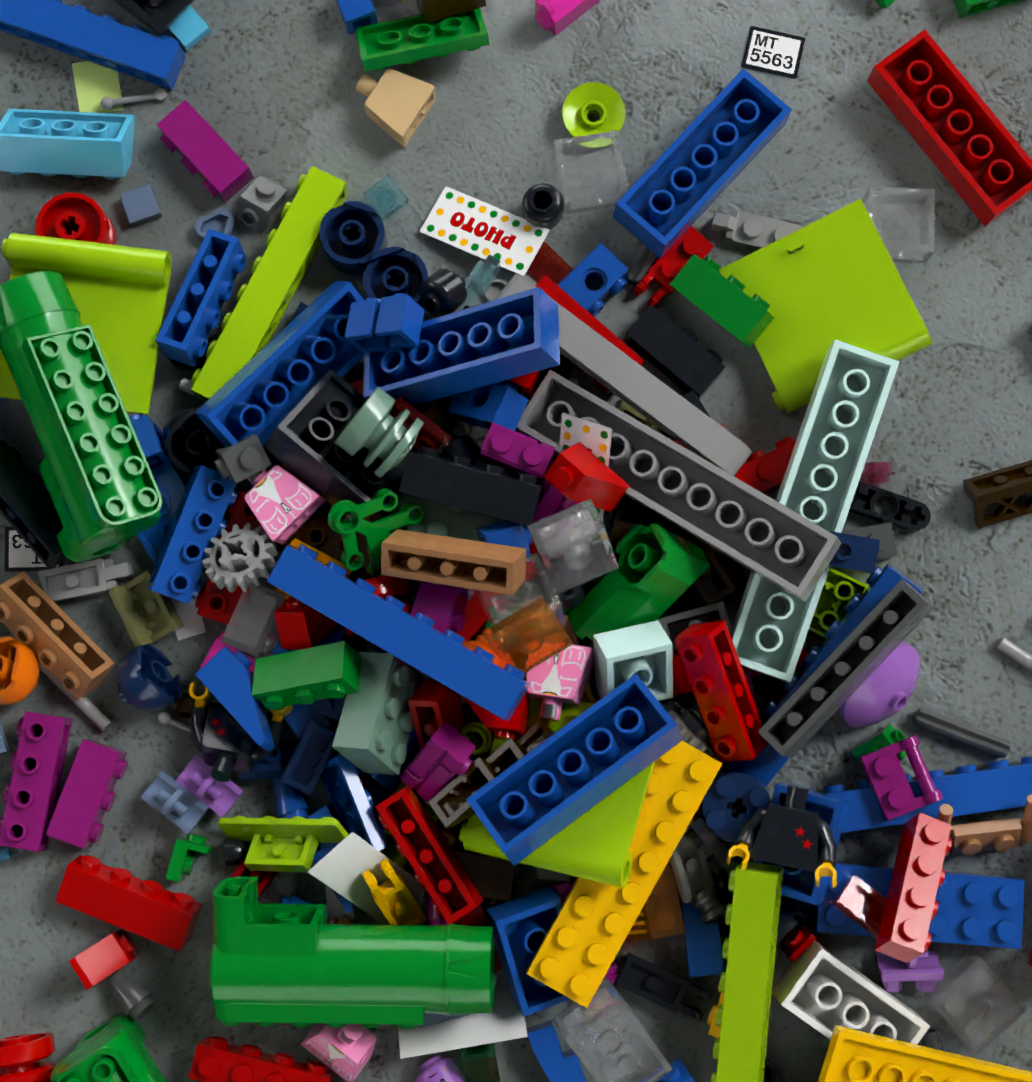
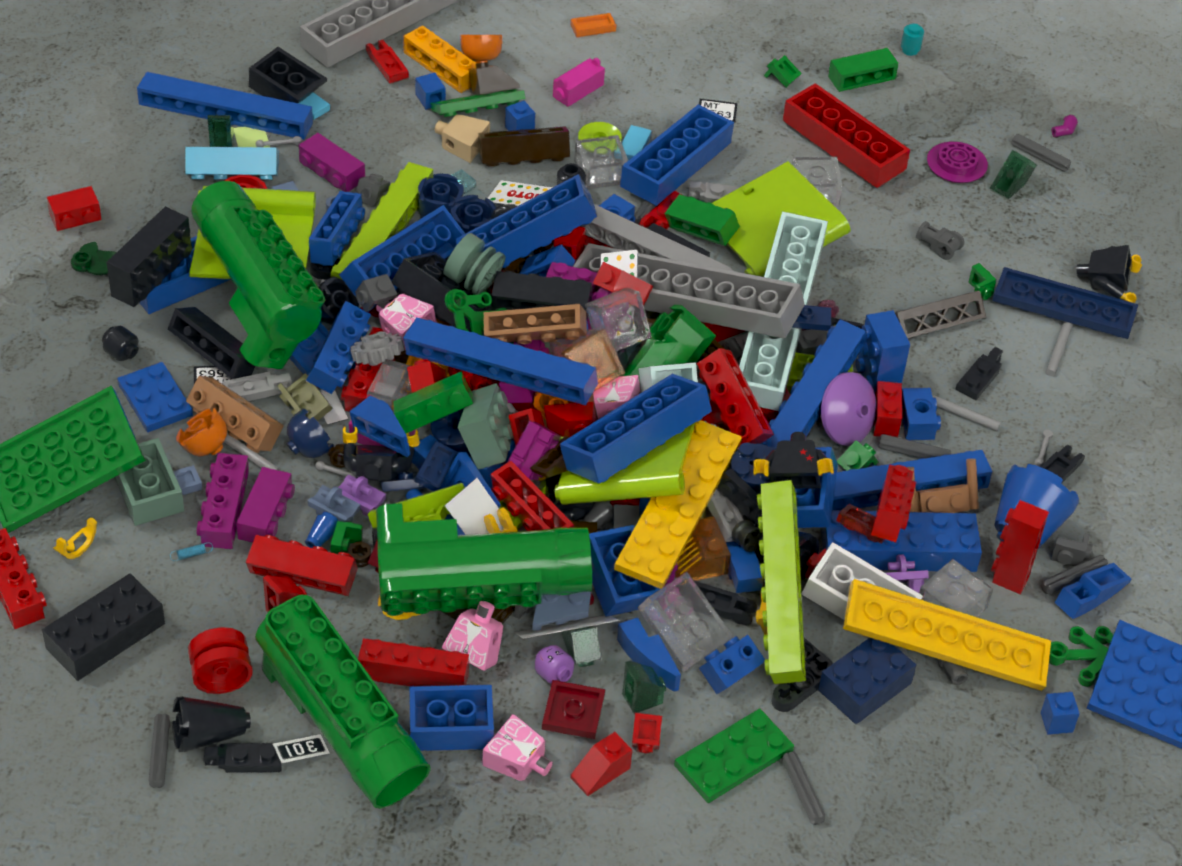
camera: 10 degrees left, 35 degrees down
(49, 85) = (220, 130): none -> clear green slope
(158, 838) = (321, 530): none -> blue cone
(212, 866) = (364, 549): none -> dark brown bush
(375, 320) = (462, 219): blue piece -> none
(480, 74) = (519, 116): none -> blue brick
(481, 135) = (524, 145): none -> dark brown brick
(643, 122) = (635, 140): none -> medium azure tile
(846, 669) = (820, 372): dark grey brick -> none
(890, 782) = (865, 461): magenta plate -> none
(937, 668) = (888, 409): none -> red brick
(949, 586) = (885, 349): none -> blue brick
(967, 693) = (919, 414): none -> blue brick

